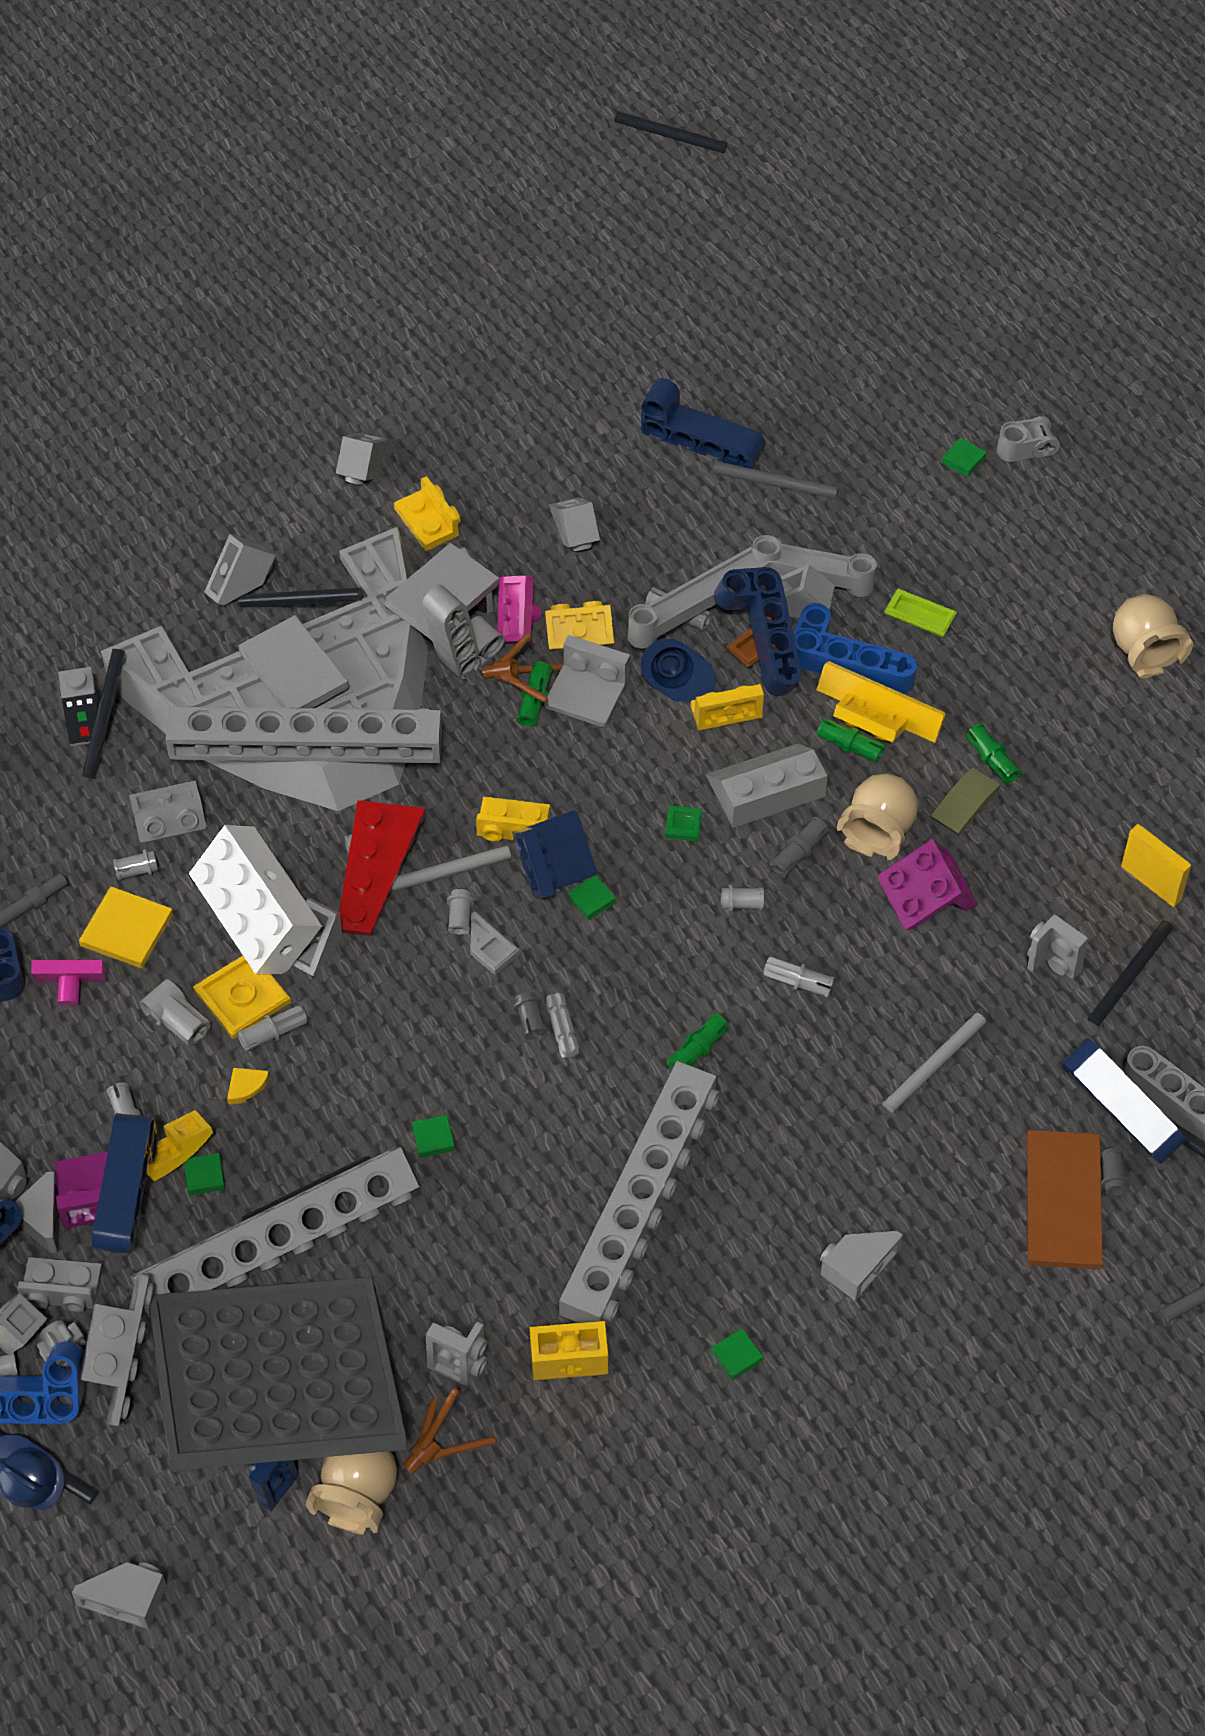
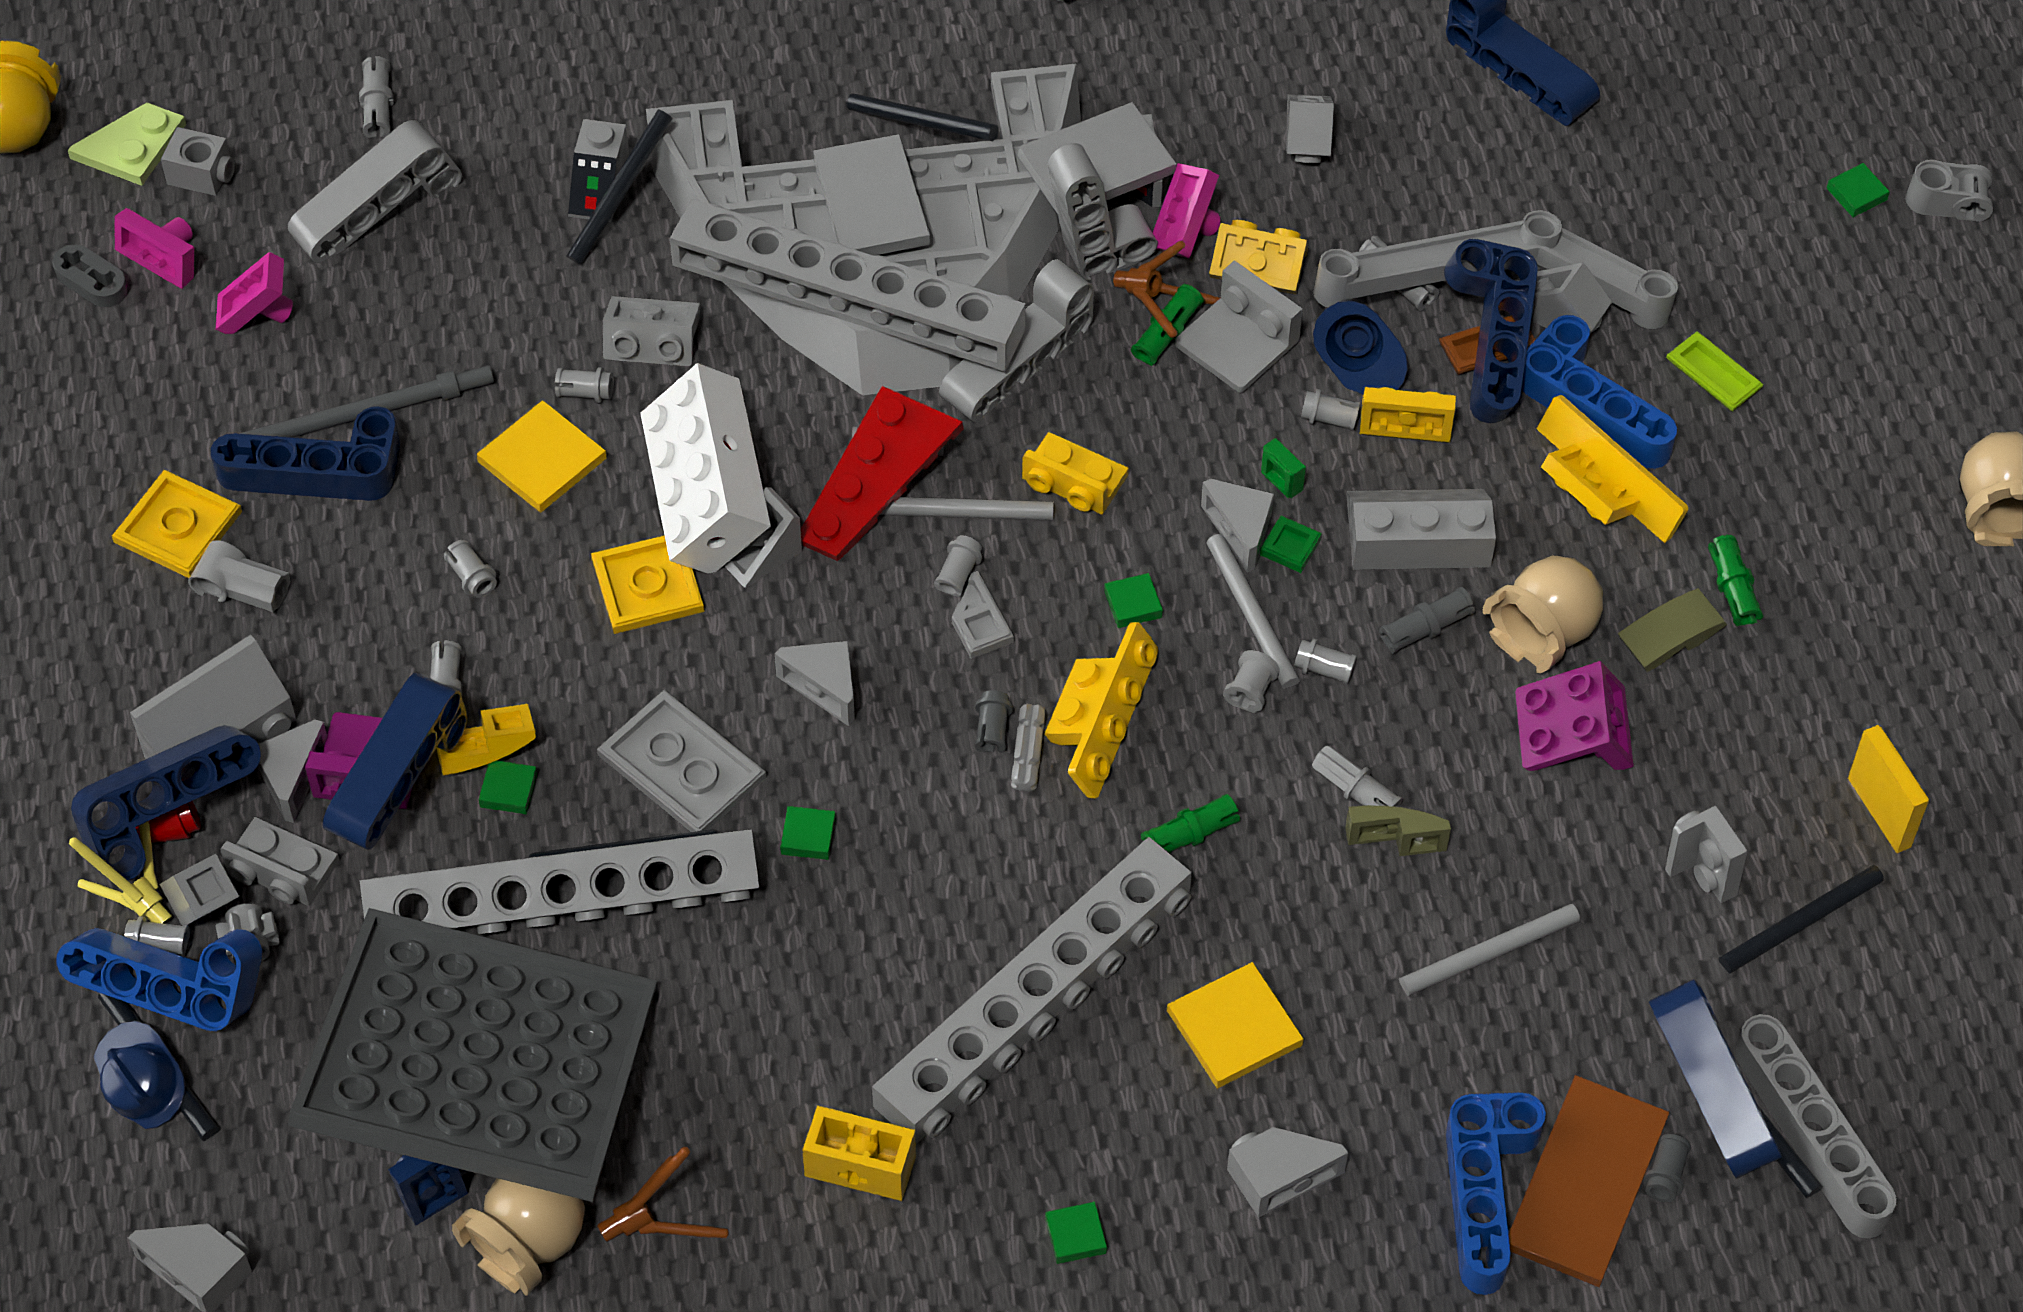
camera: 20 degrees right, 0 degrees up
(69, 975) = (445, 492): dark pink tile -> none
(112, 1345) = (296, 955): light grey bracket -> none
(115, 1029) = (471, 569): none -> light grey pin
(171, 1008) = (555, 579): light grey piece -> none
(239, 569) = (861, 60): light grey slope -> none
(246, 1084) = (605, 693): yellow tile -> none
(271, 1028) = (664, 634): light grey axle -> none
(321, 1116) = (681, 763): none -> light grey tile
(397, 1021) = (821, 675): none -> light grey slope
(429, 515) = (1128, 64): yellow bracket -> none
(454, 1354) = (714, 1111): light grey bracket -> none
(459, 704) = (1058, 312): none -> light grey beam
(554, 853) = (1106, 529): dark blue bracket -> none
(599, 980) = (1099, 707): none -> yellow bracket
(641, 815) = (1239, 516): none -> light grey slope
(658, 772) = (1283, 468): none -> green tile
(672, 720) = (1330, 410): none -> light grey pin
(677, 879) = (1251, 609): none -> light grey bar
(698, 928) = (1251, 681): none -> light grey bush
(775, 480) = (1595, 147): dark grey bar -> none
(785, 1172) = (1234, 1025): none -> yellow tile
(849, 997) = (1412, 829): none -> olive slope
(851, 740) = (1553, 505): green pin -> none
(1005, 1230) = (1486, 1193): none -> blue beam

